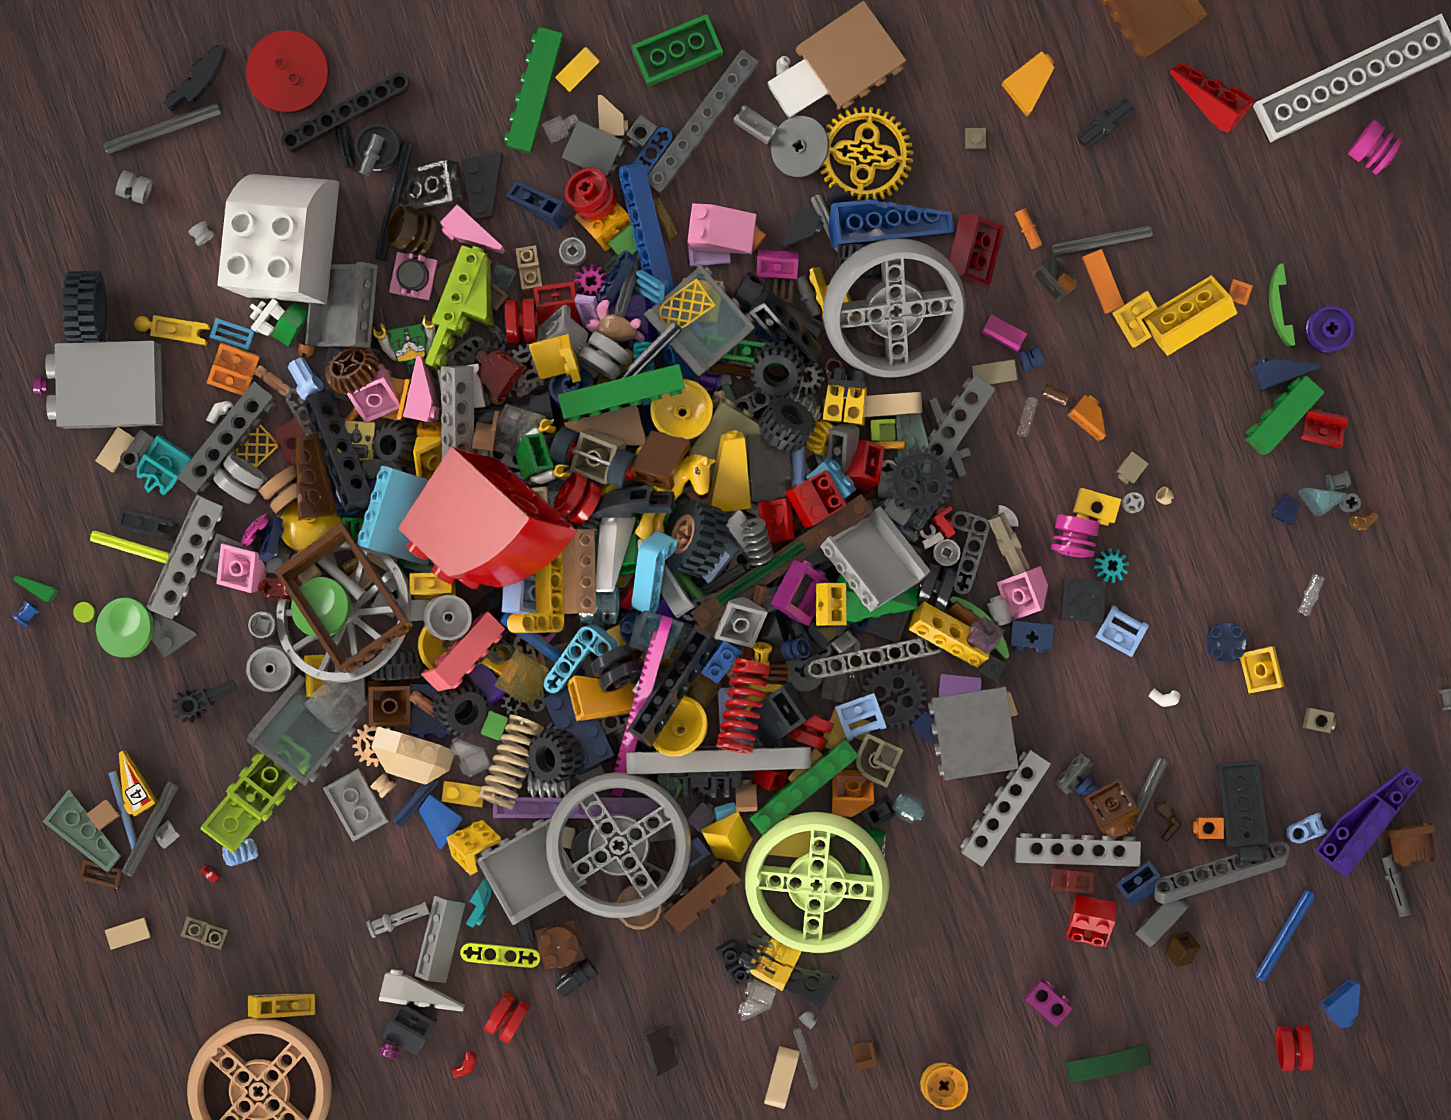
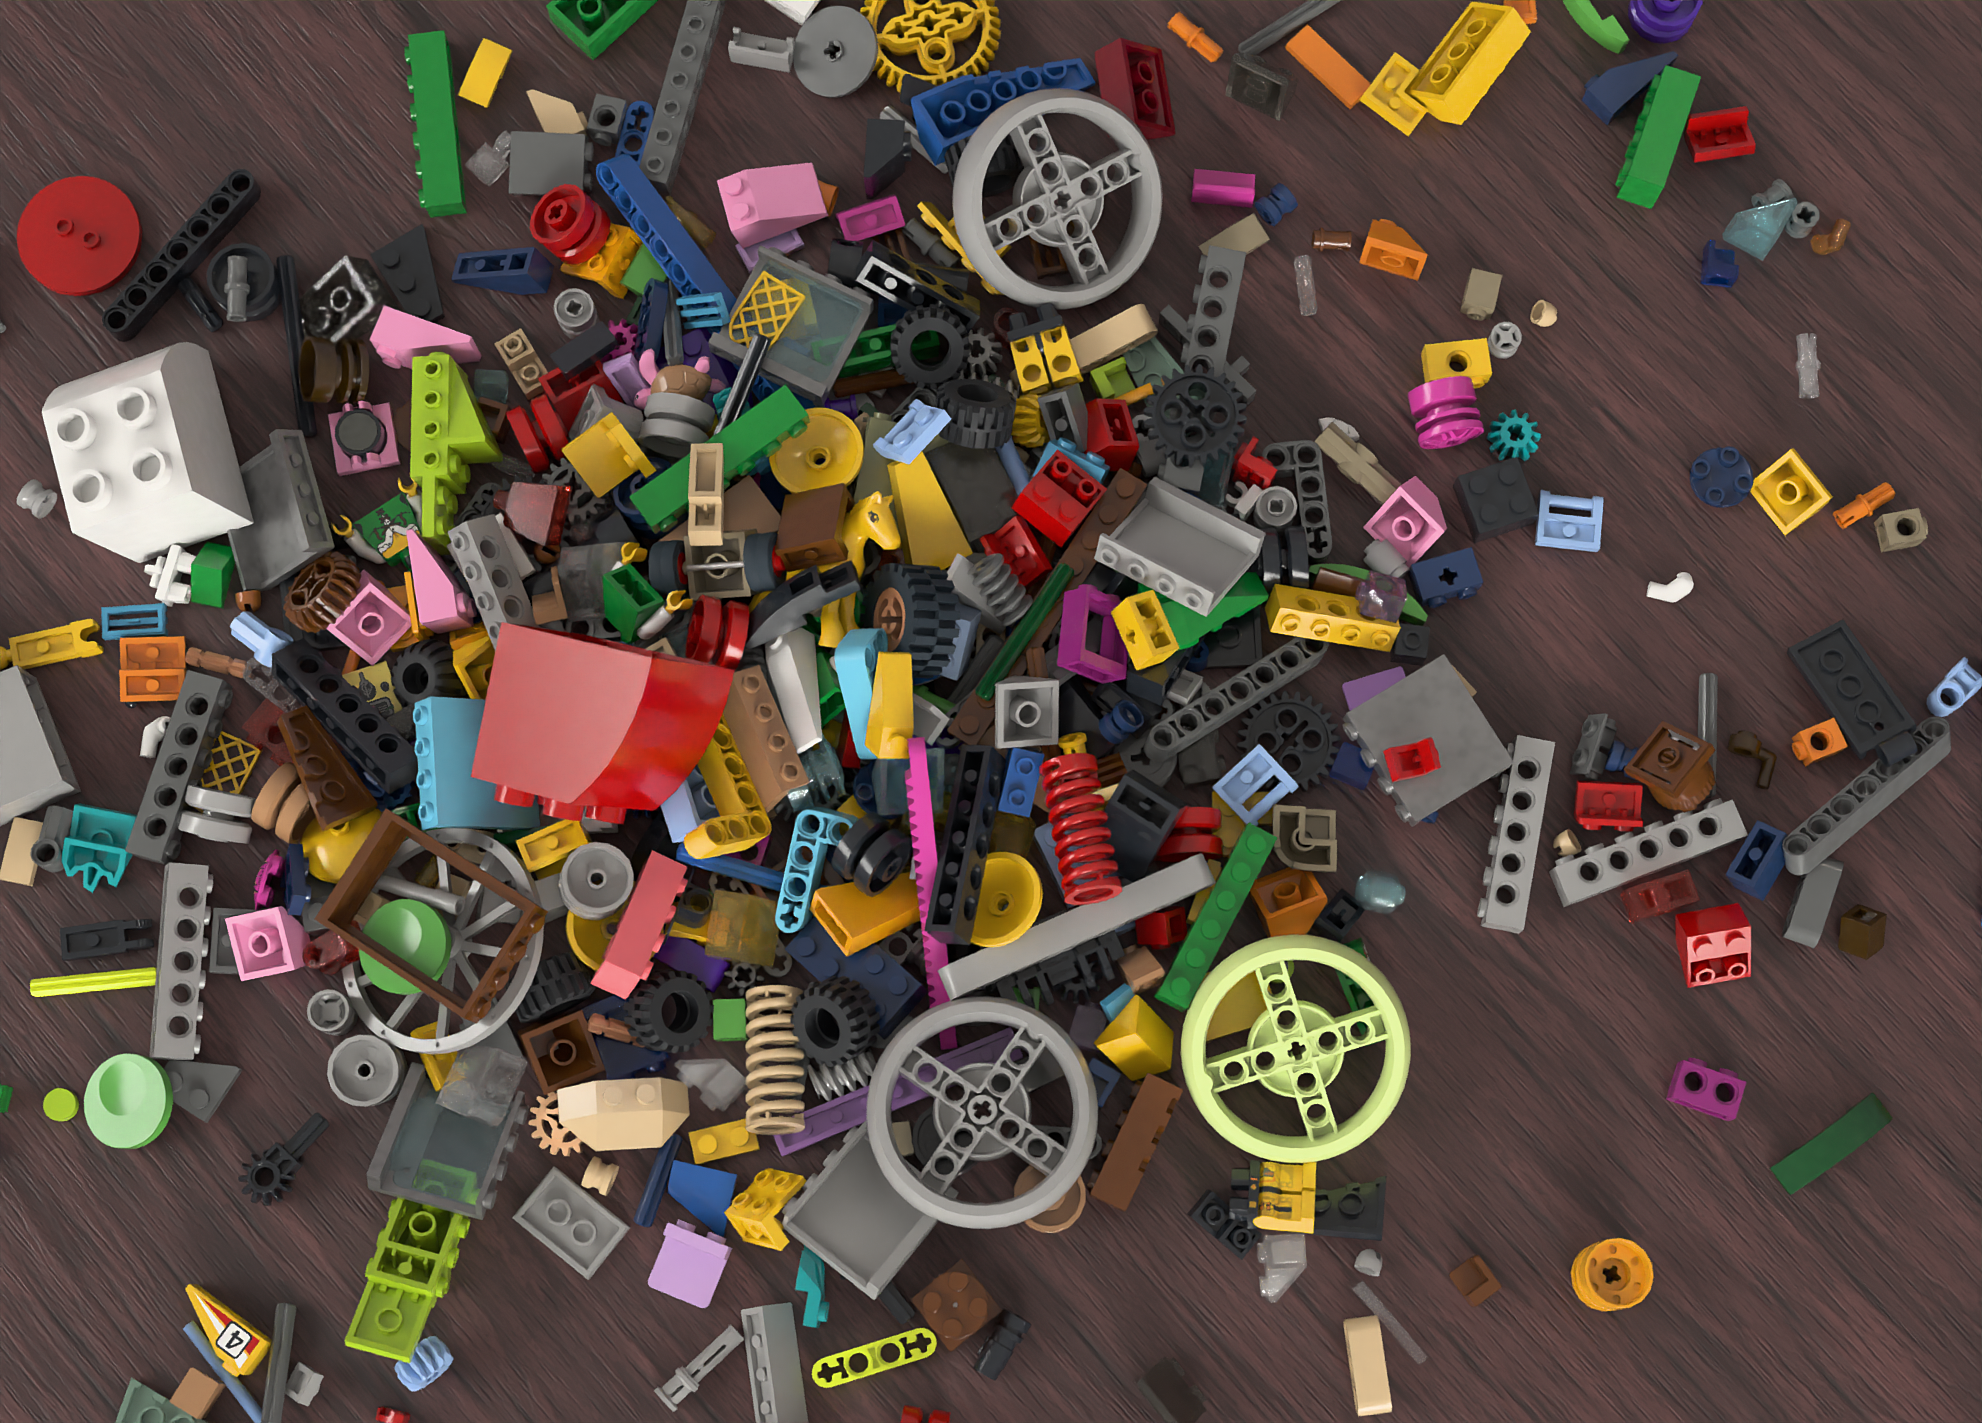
camera: 20 degrees left, 10 degrees down
(414, 857) = (689, 1264): none -> lavender bracket
(568, 281) = (584, 350): none -> black slope
(604, 414) = (706, 494): none -> tan slope
(661, 591) = (891, 707): none -> yellow slope
(745, 428) = (912, 432): none -> light blue plate
(957, 744) = (1412, 759): none -> red bracket
(1033, 825) = (1568, 843): none -> tan hinge
(1066, 813) = (1608, 805): none -> red bracket
(1304, 695) = (1864, 505): none -> orange axle

